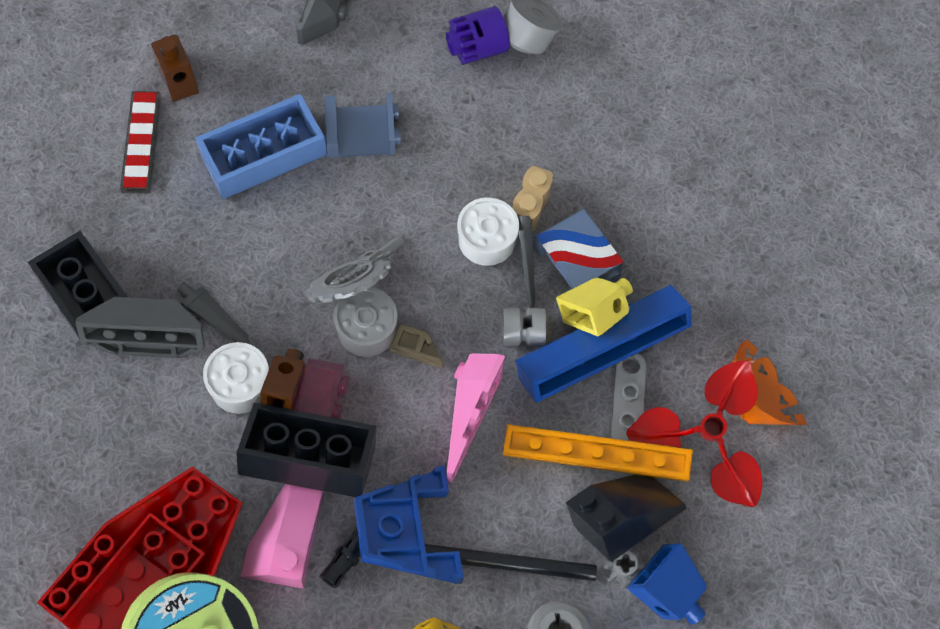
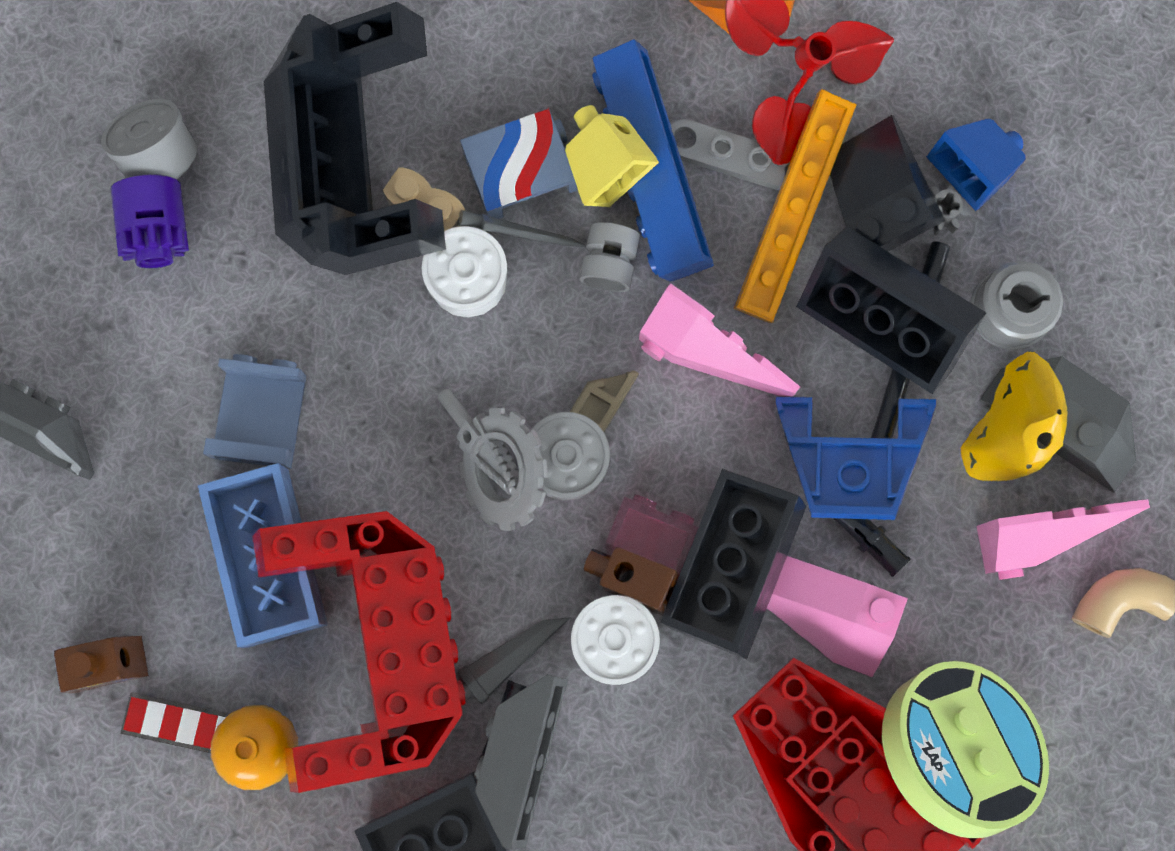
camera: 75 degrees left, 15 degrees up
(131, 166) = (251, 747): none -> light orange cylinder
(214, 233) = (402, 637): none -> red wedge
(525, 526) = (889, 309): none -> black brick
(554, 123) = (322, 144): none -> black wedge

